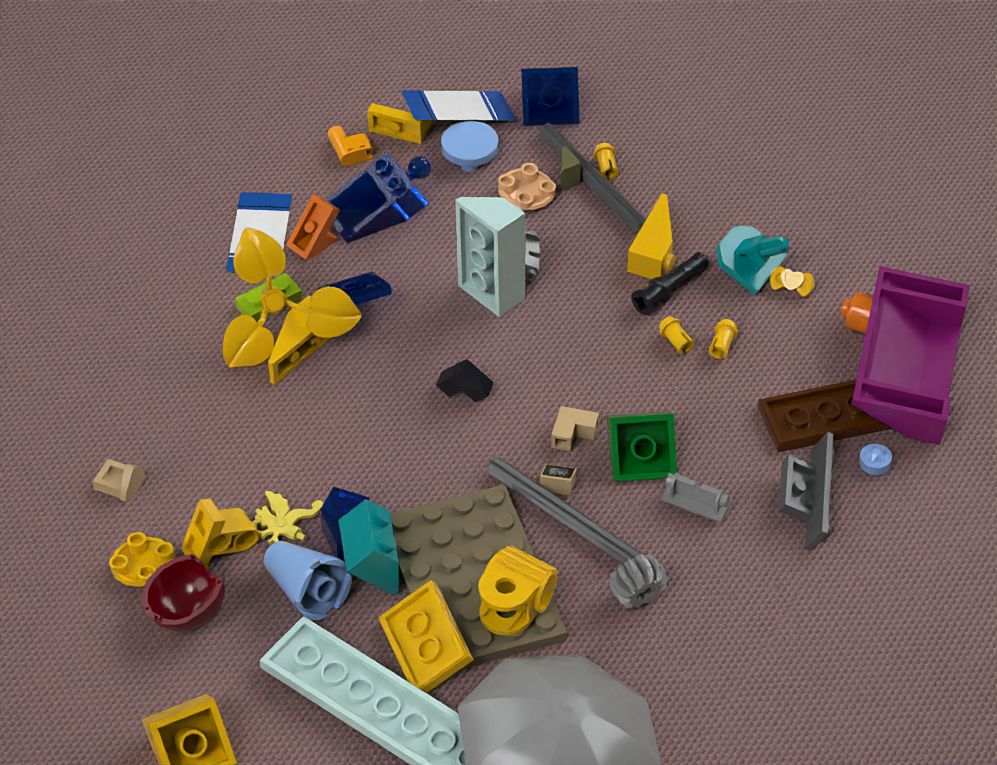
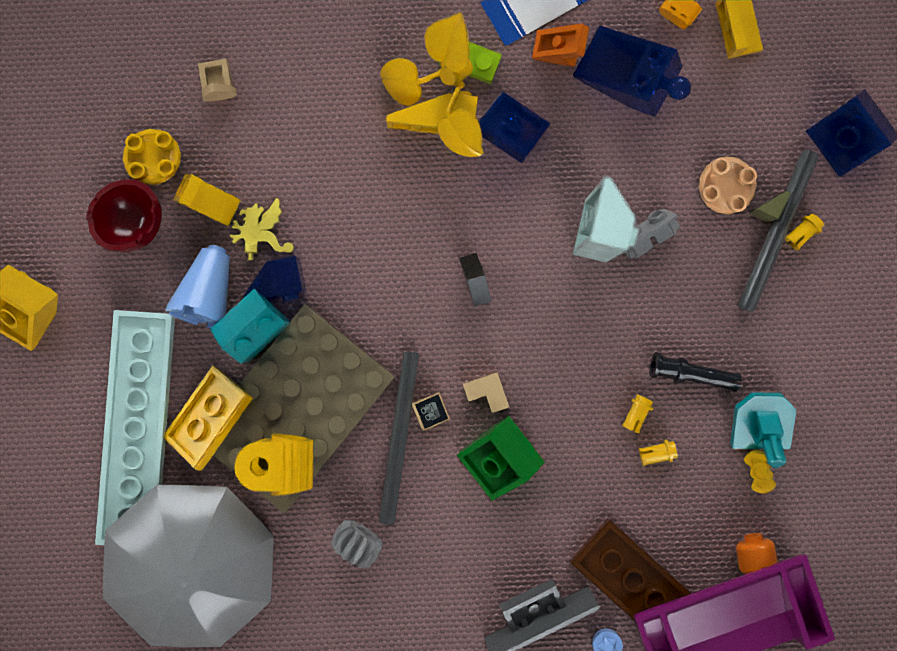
camera: 60 degrees right, 40 degrees up
(457, 105) = (786, 62): sticker -> none
(469, 144) = (749, 103): light blue tile -> none
(652, 248) = (729, 336): yellow slope -> none
(696, 499) = (477, 531): light grey hinge -> none

